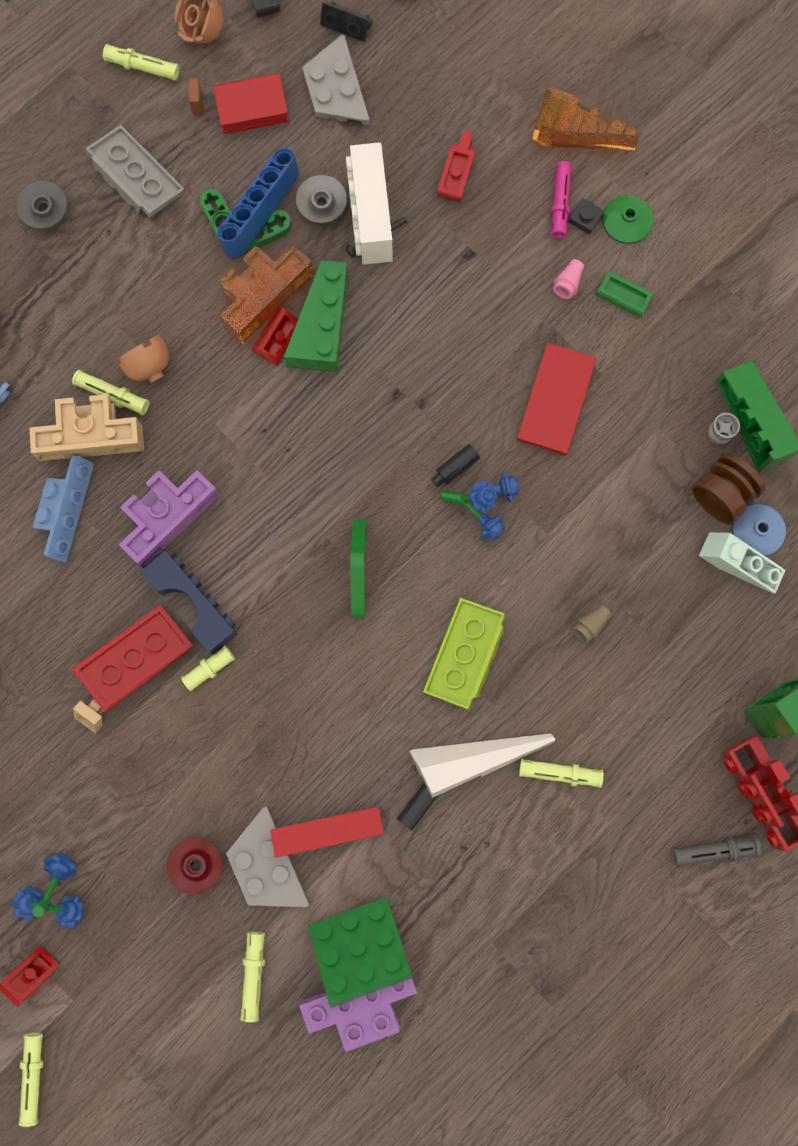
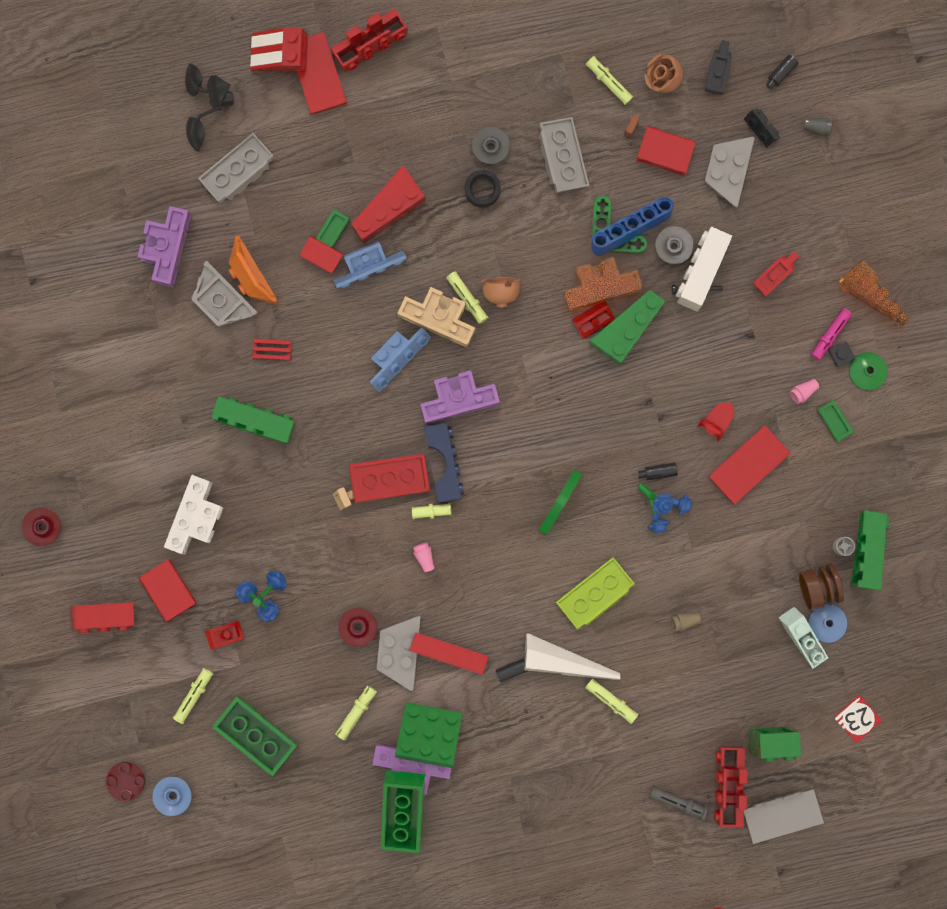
camera: 30 degrees right, 5 degrees up
(53, 241) = (482, 174): none -> black tyre
(137, 1085) = (255, 735): none -> green brick
(230, 729) = (424, 556): none -> bright pink cone
(380, 1073) = (402, 811): none -> green brick
(489, 367) = (718, 420): none -> red piece

